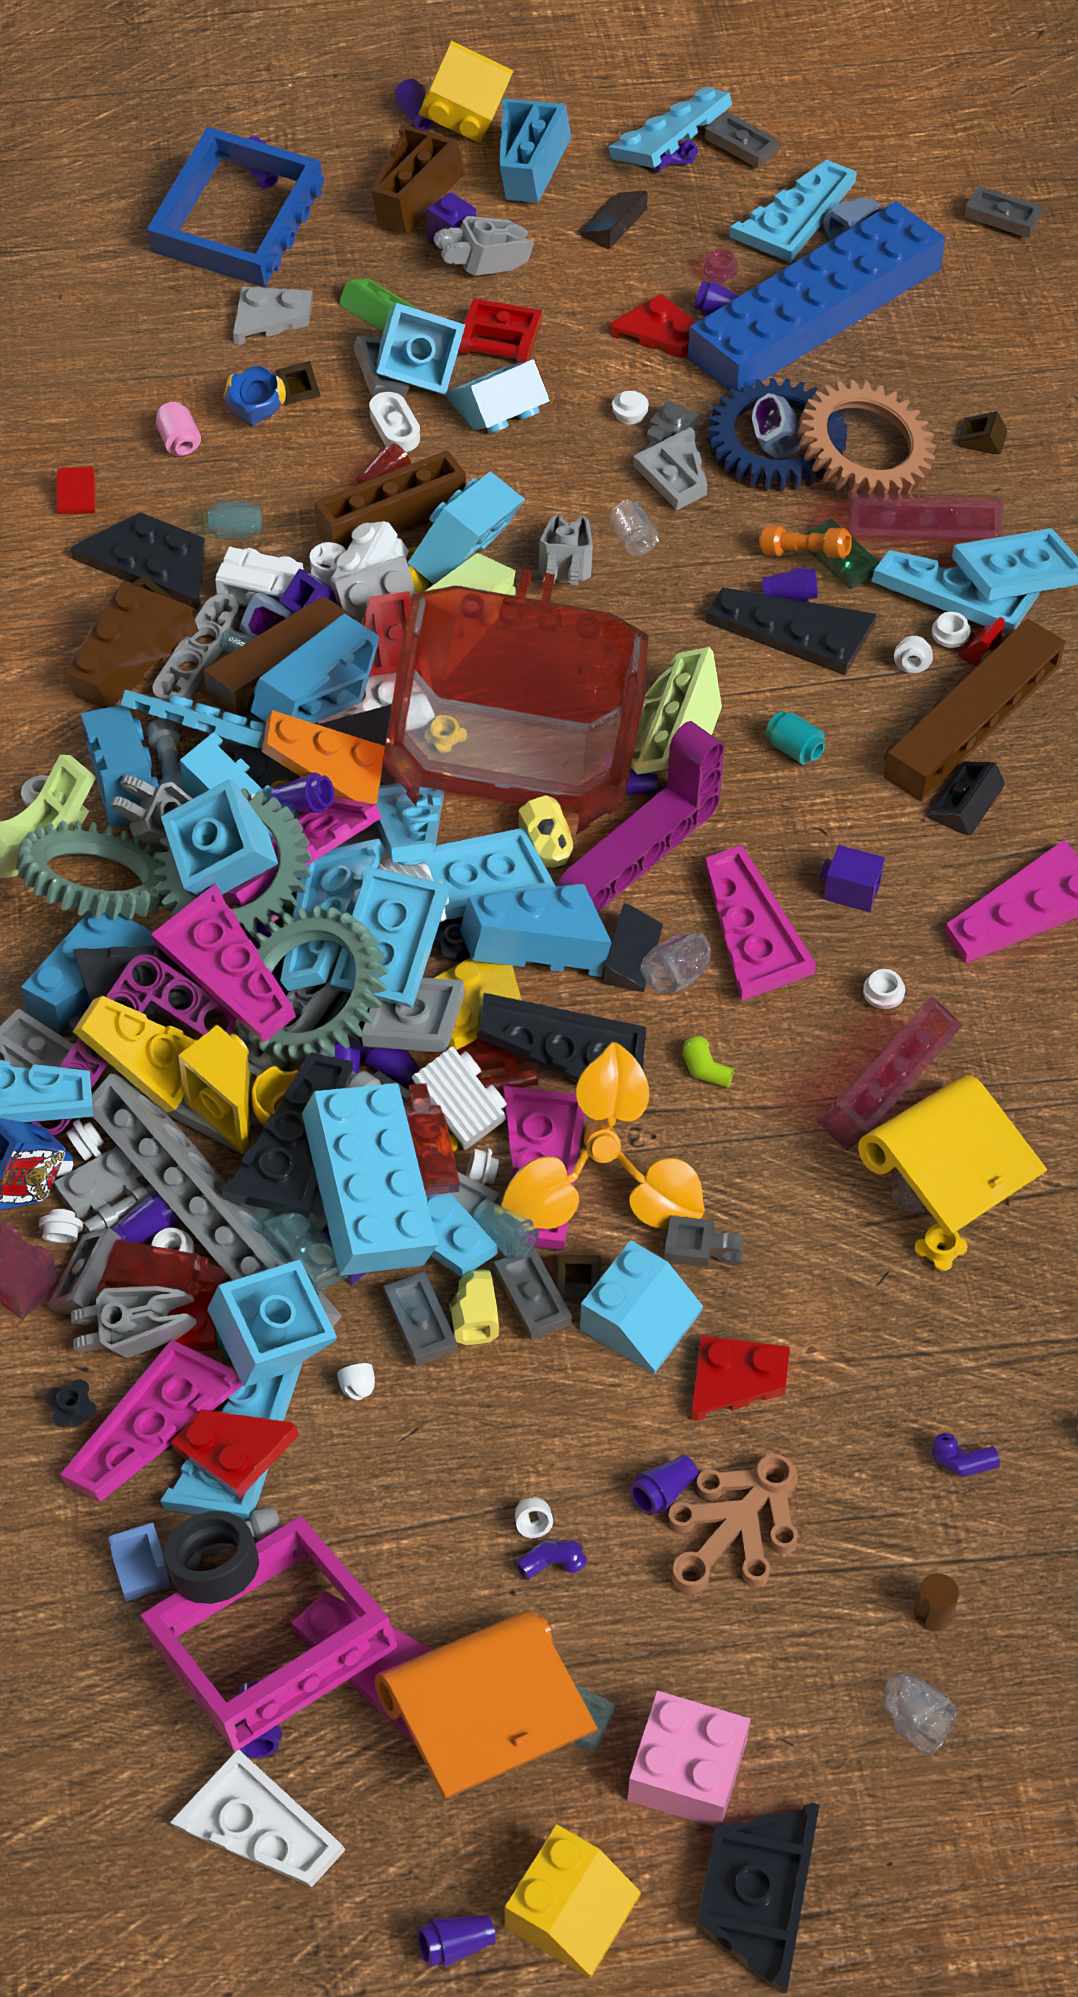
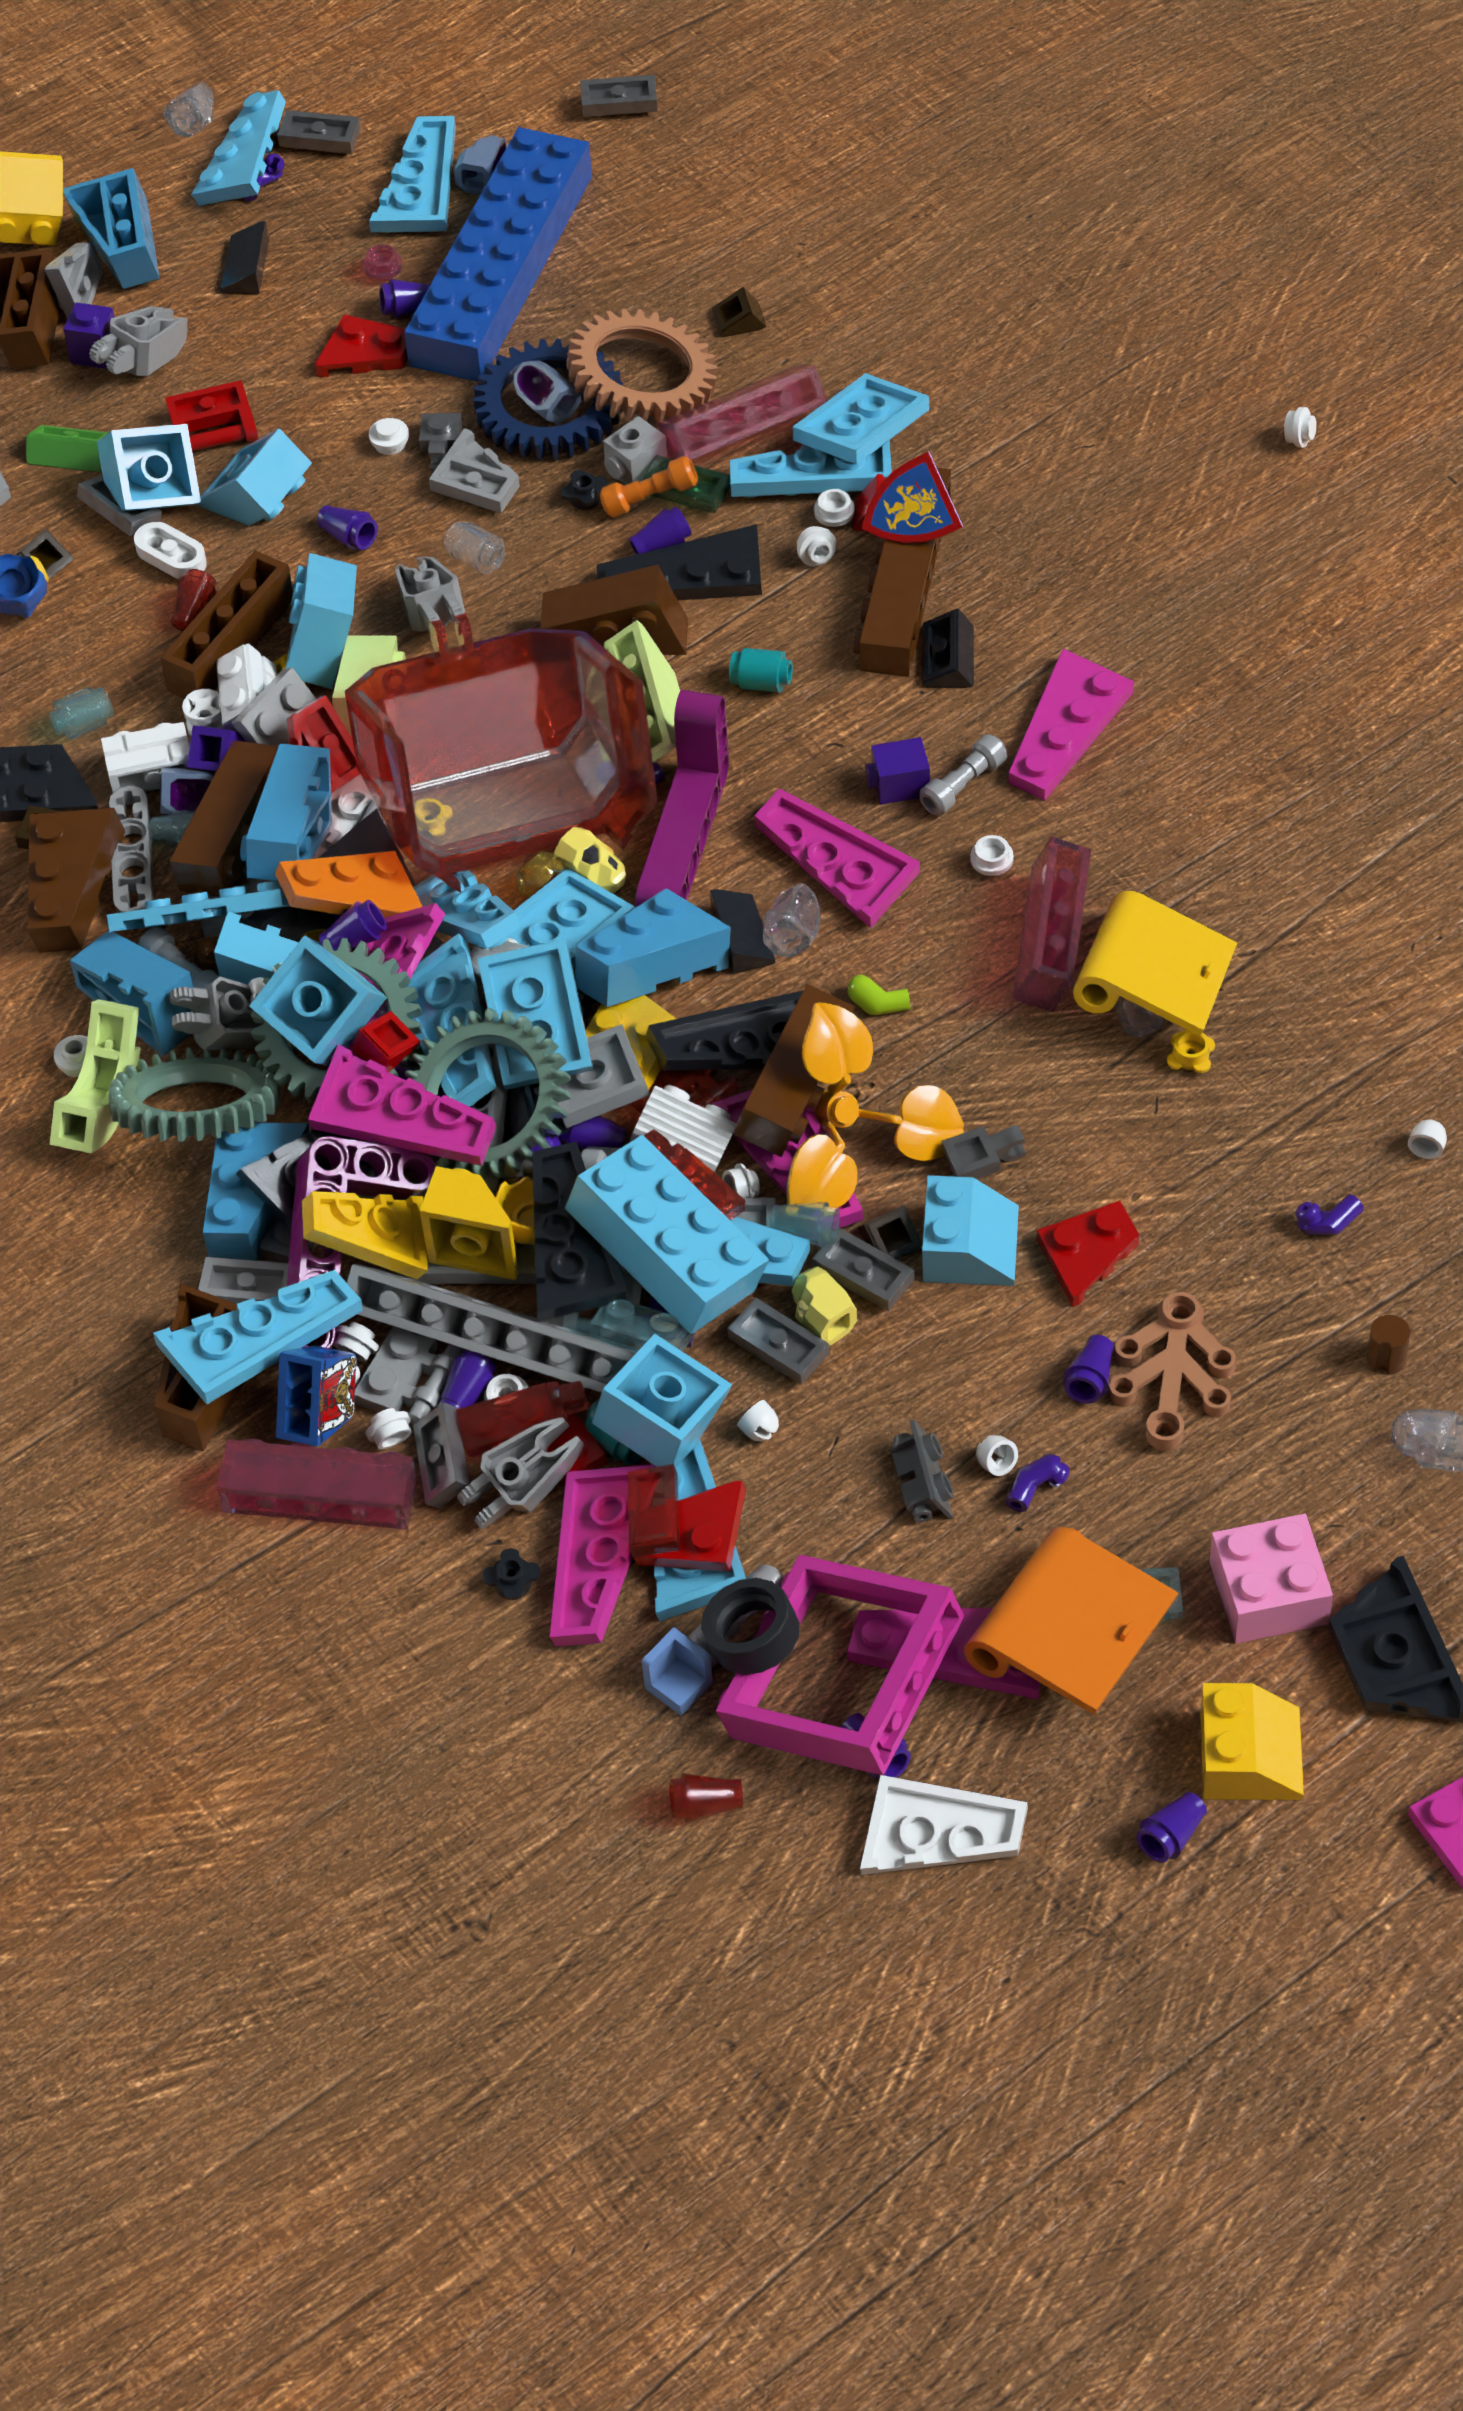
camera: 25 degrees left, 0 degrees up
(87, 1683) = (703, 1796): none -> clear red cone
(205, 1412) = (653, 1511): none -> clear red tile
(255, 900) = (385, 1041): none -> red slope
(468, 1483) = (931, 1488): none -> dark grey hinge
(469, 171) = (75, 276): none -> light grey wing
(496, 820) = (538, 873): none -> clear yellow plate
(546, 466) = (350, 527): none -> dark purple cone
(550, 1110) = (785, 1087): none -> reddish brown brick
(652, 80) = (190, 110): none -> clear rock
(690, 623) = (615, 602): none -> reddish brown wedge
(754, 520) = (583, 490): none -> black plate
(813, 505) = (632, 450): none -> light grey brick
(937, 899) = (985, 754): none -> light grey piece
(1003, 655) = (912, 504): none -> shield

